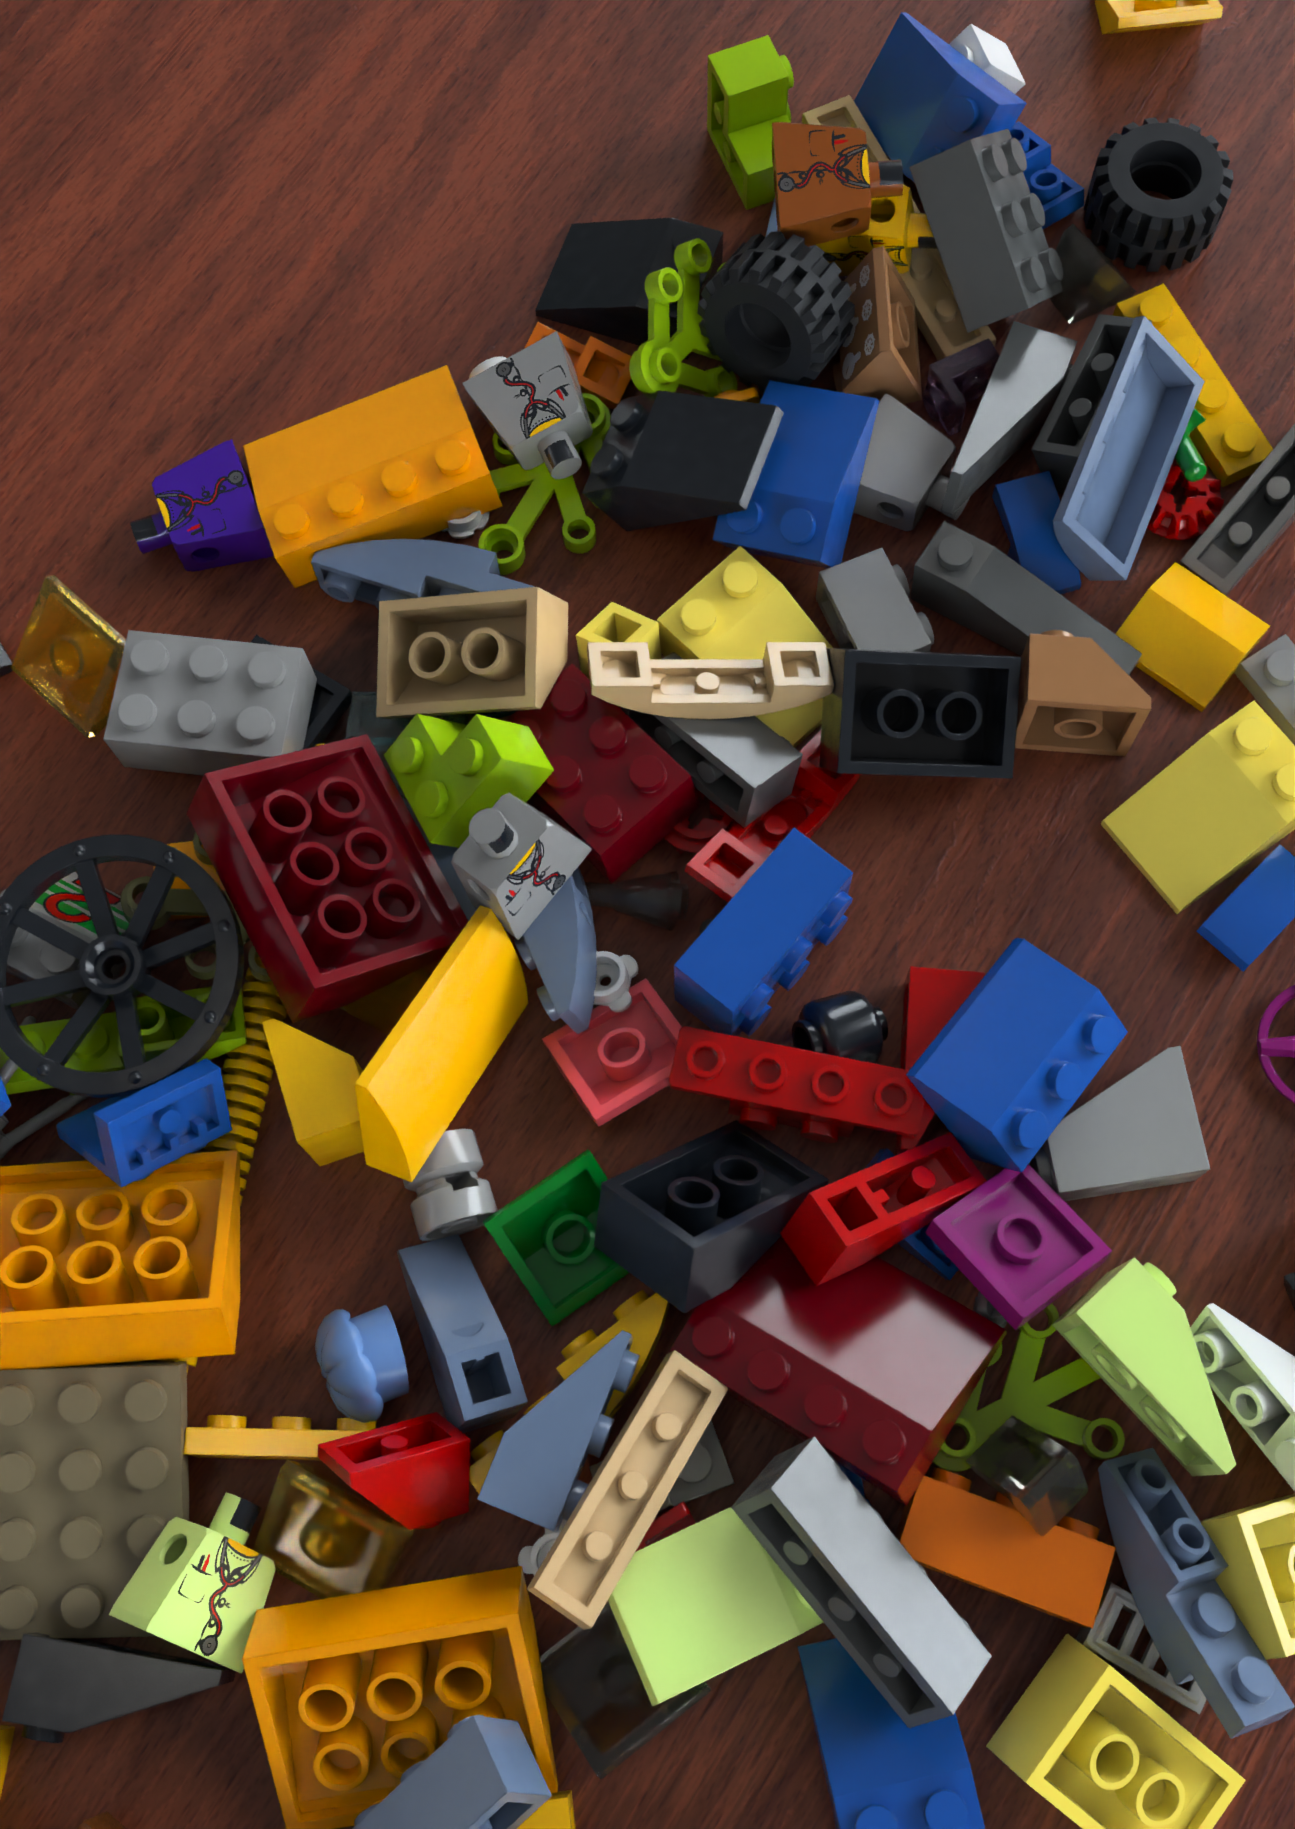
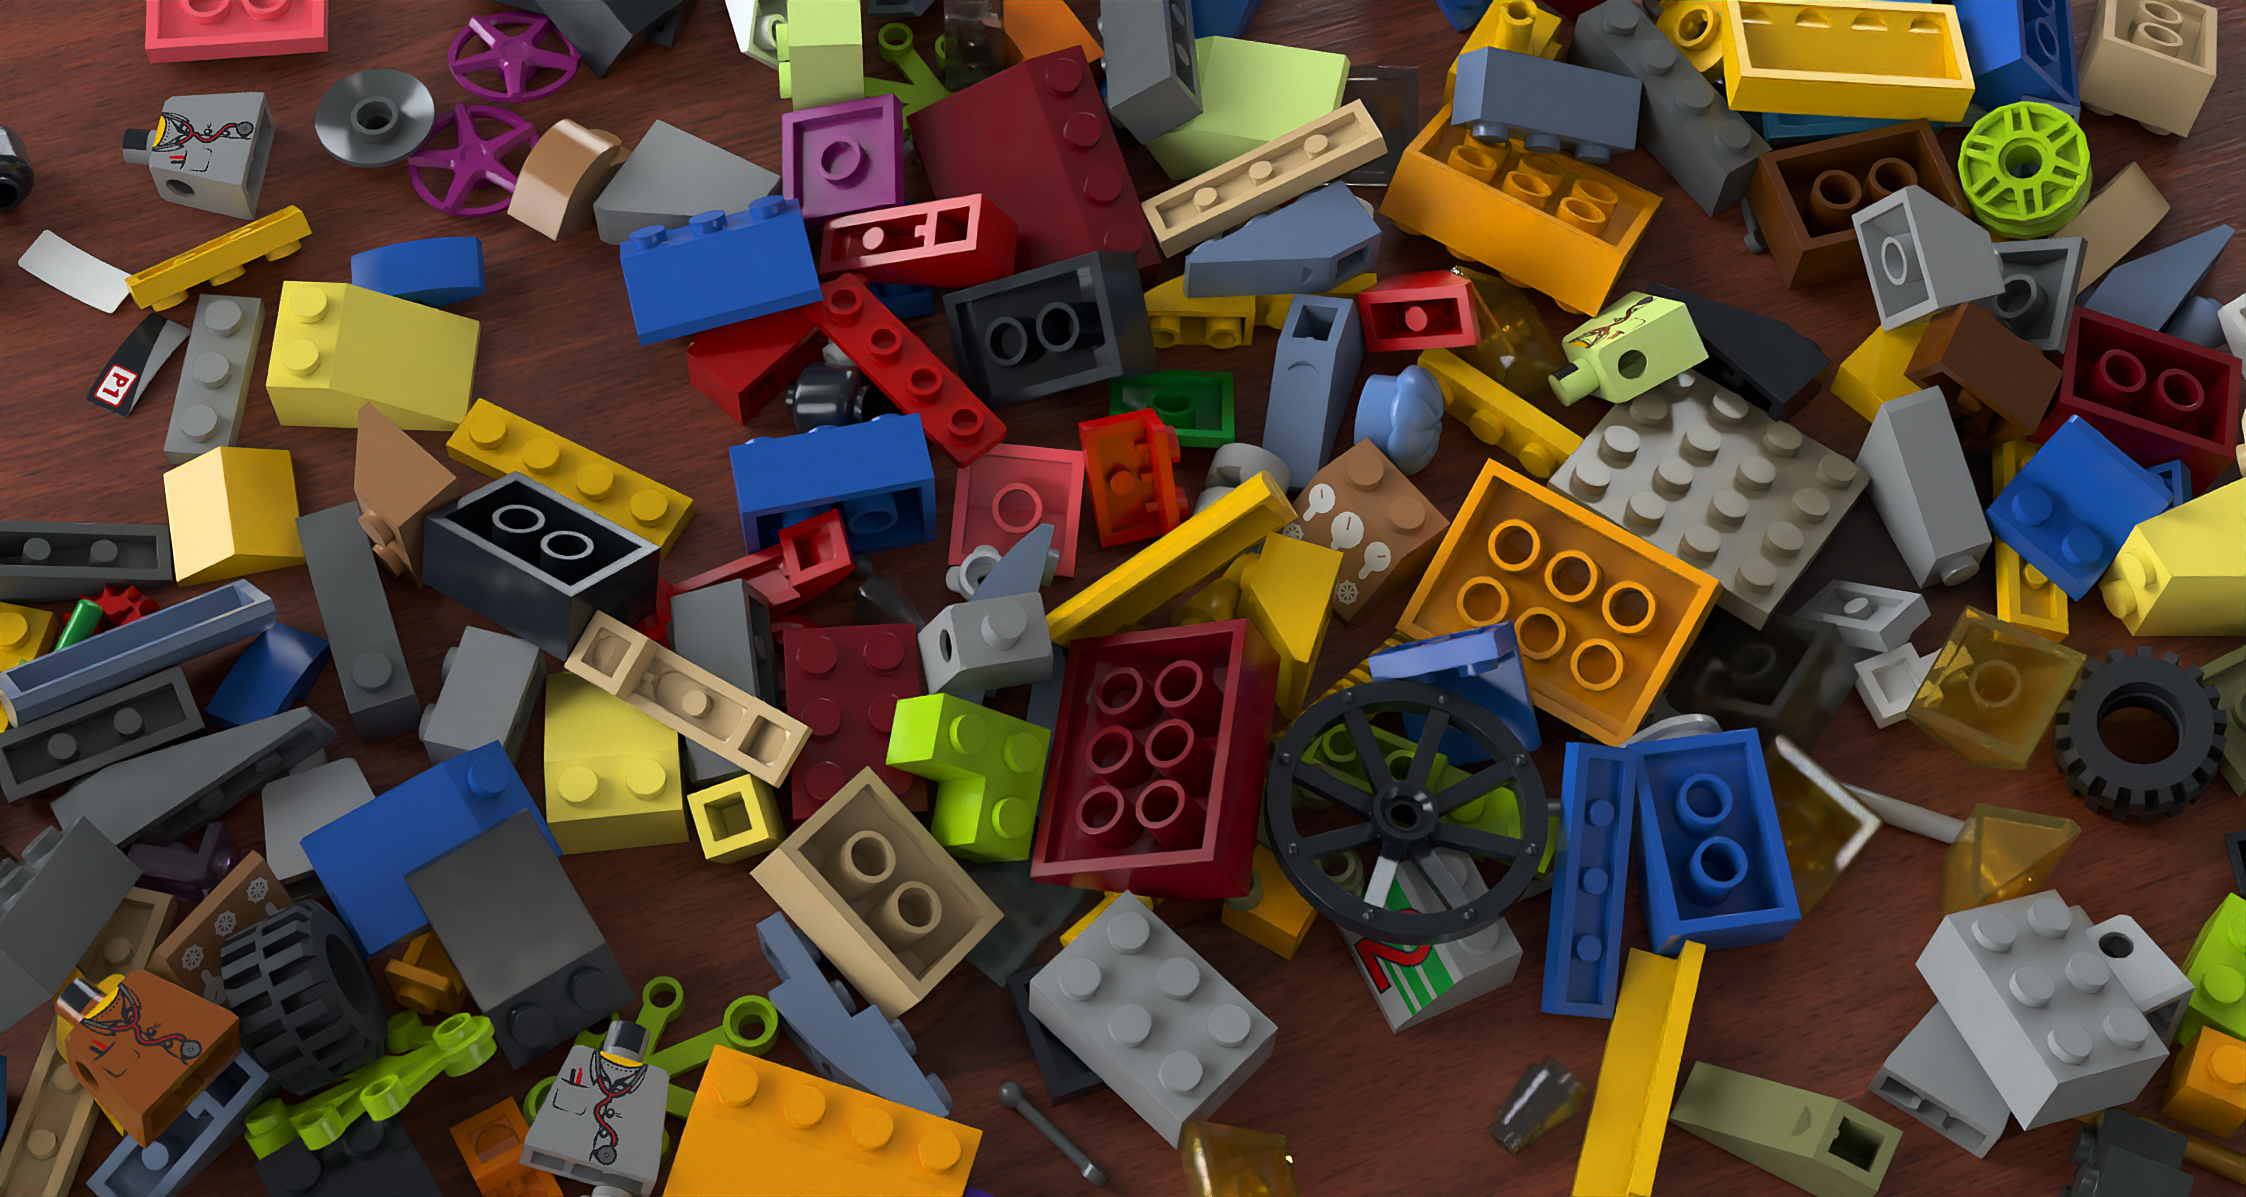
camera: 150 degrees left, 10 degrees down
(202, 623) = (1013, 1096): none -> dark grey hinge
(332, 1235) = (1376, 520): none -> medium nougat slope
(543, 1130) = (1132, 477): none -> red bracket
(986, 837) = (505, 443): none -> yellow plate
(1234, 1073) = (566, 178): none -> medium nougat brick

